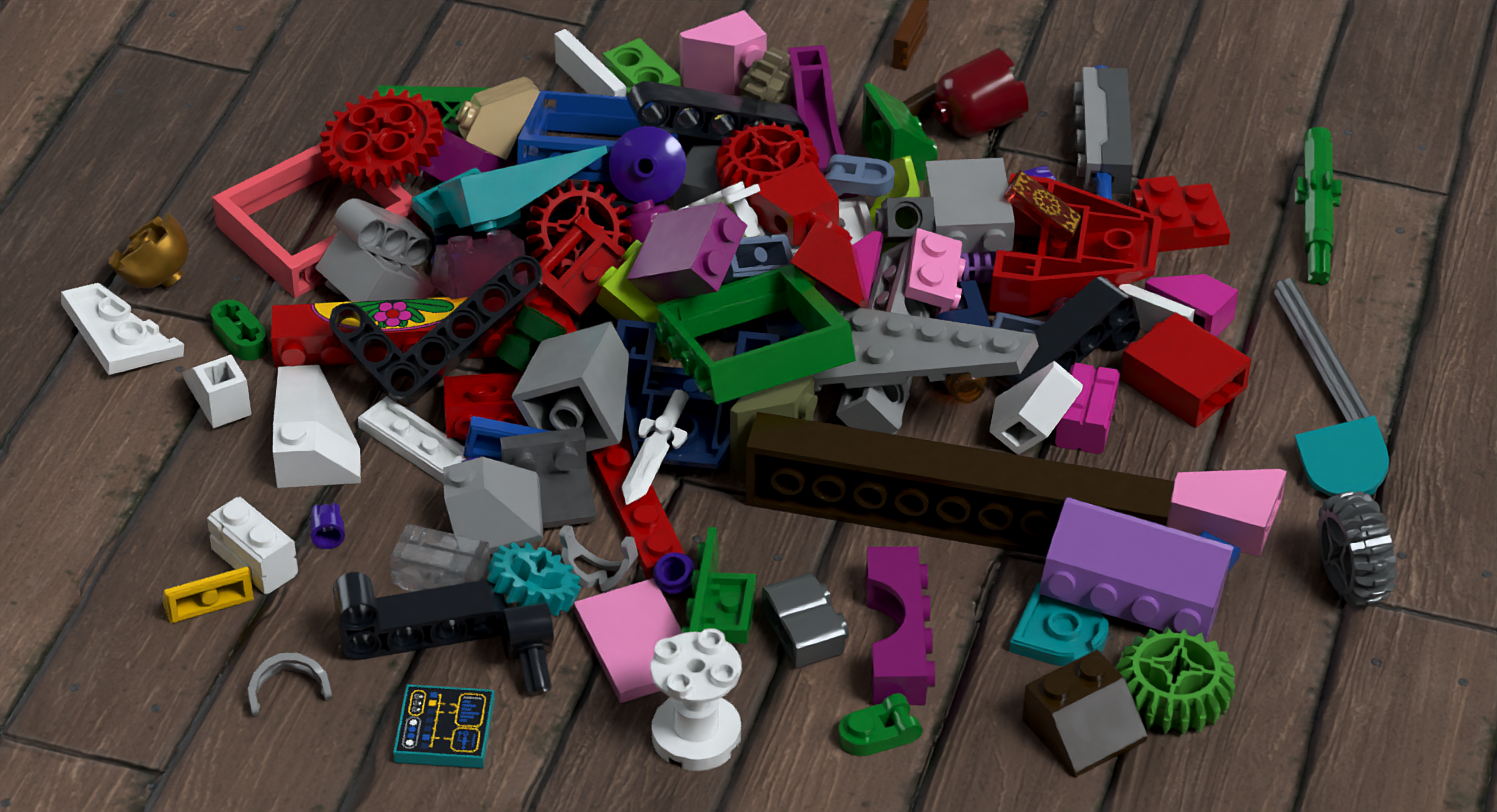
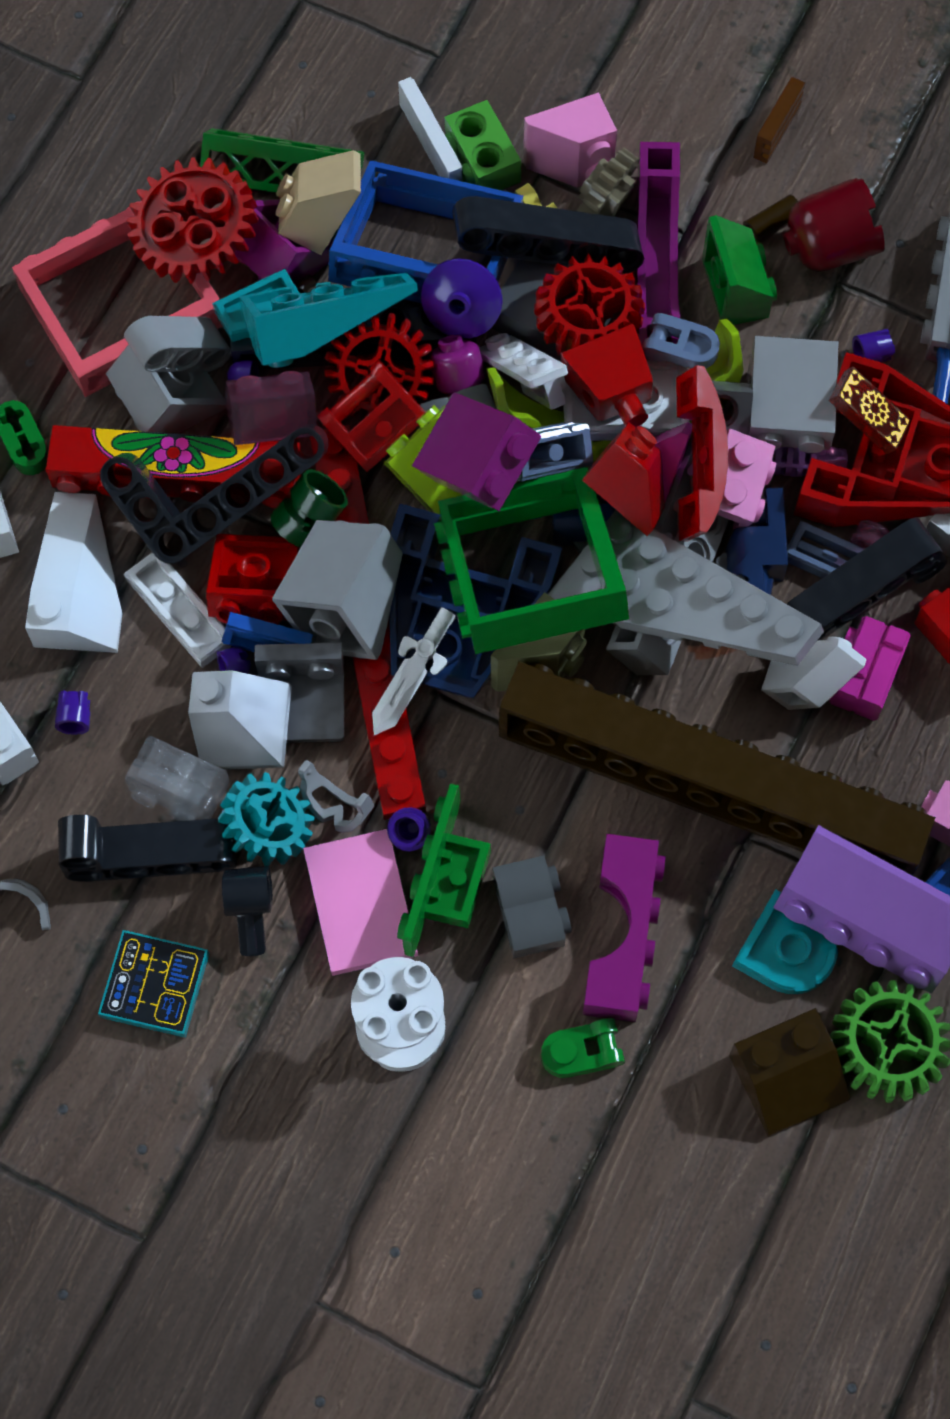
camera: 10 degrees right, 25 degrees up
(888, 208) = (700, 403): none -> red slope

